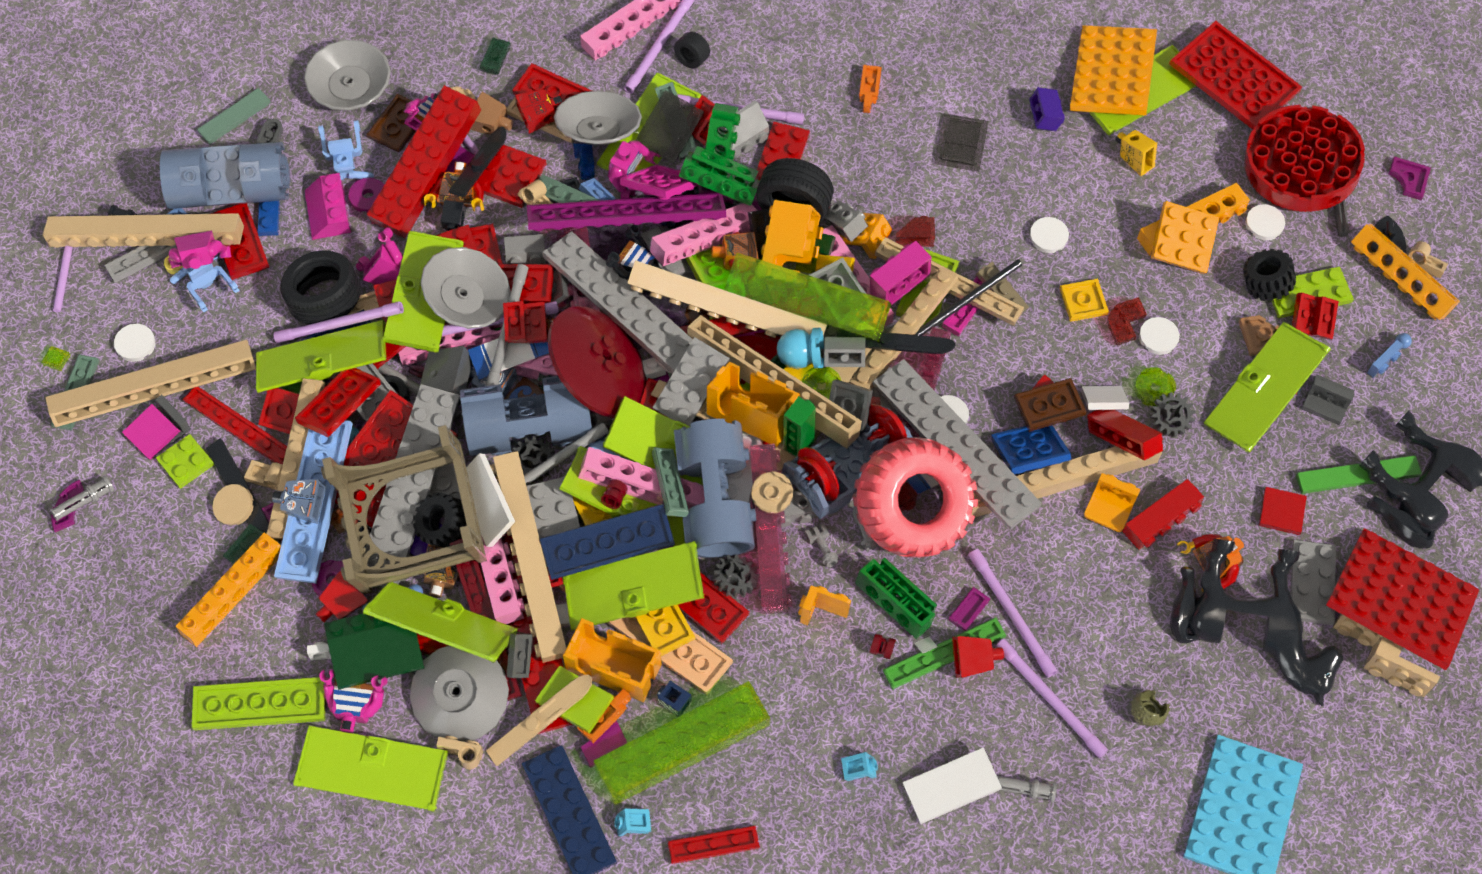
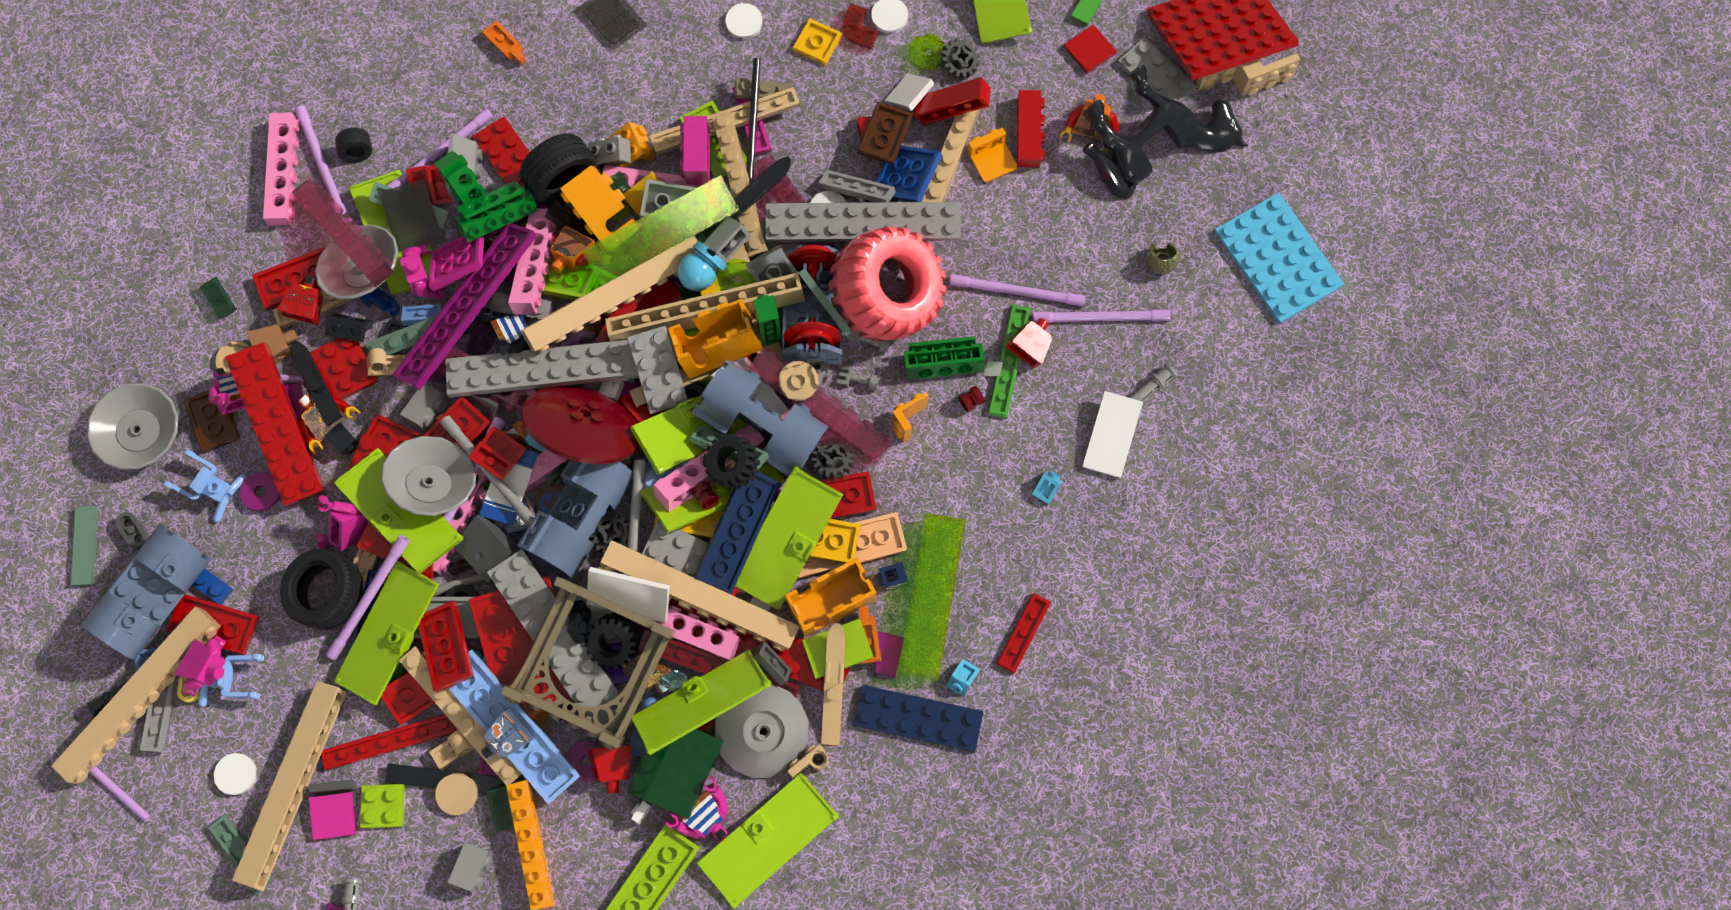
camera: 50 degrees left, 10 degrees up
(55, 358) = (194, 849): clear neon green plate -> none
(179, 558) = (470, 867): none -> light grey brick
(327, 207) = (244, 532): dark pink slope -> none
(435, 482) = (579, 621): none -> black plate
(446, 590) = (672, 679): none -> clear light blue tile
(545, 153) = (347, 327): none -> black bracket
(613, 91) = (342, 232): none -> clear pink brick
(648, 476) = (717, 457): none -> black tyre
(855, 463) = (825, 303): none -> sand green tile
(918, 229) = (663, 109): clear red slope -> none
(969, 609) = (990, 317): magenta tile -> none
(984, 419) = (856, 187): none -> light grey plate

